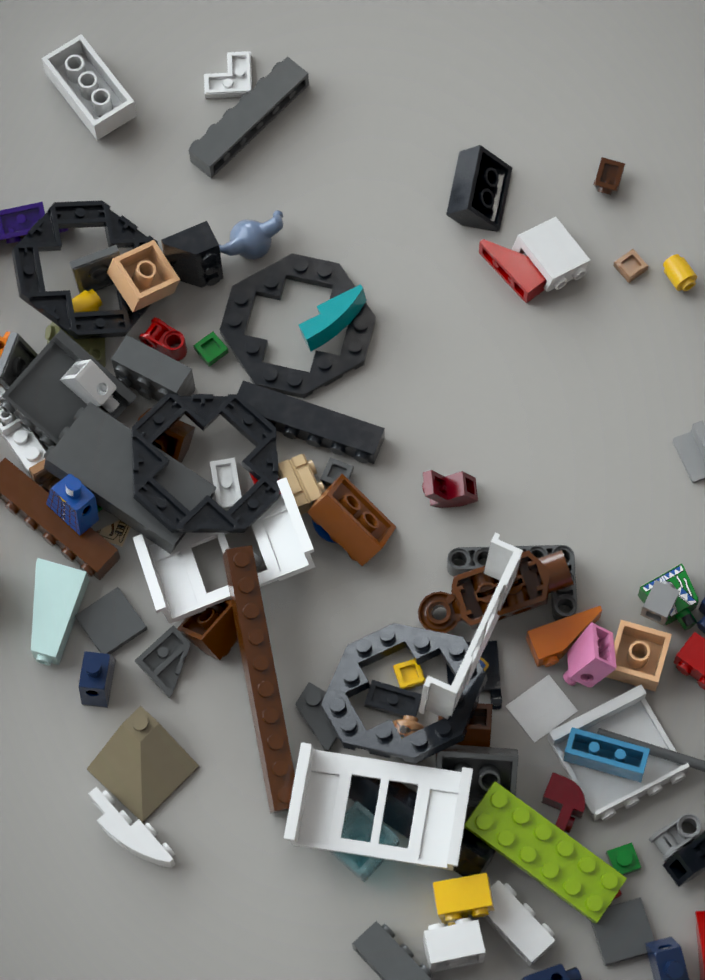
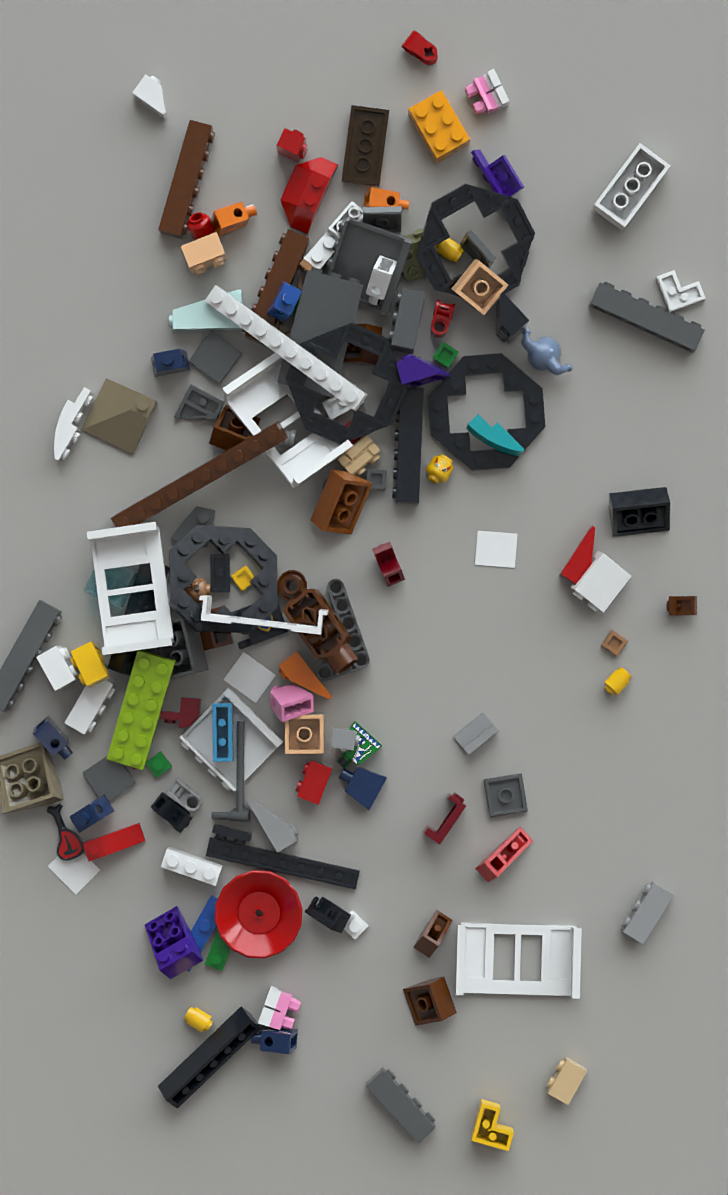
camera: 70 degrees right, 20 degrees up
(132, 515) = (286, 348): none -> white plate
(221, 369) = (418, 371): none -> dark purple slope
(349, 395) = (439, 469): none -> yellow head
(471, 365) = (496, 549): none -> white sticker

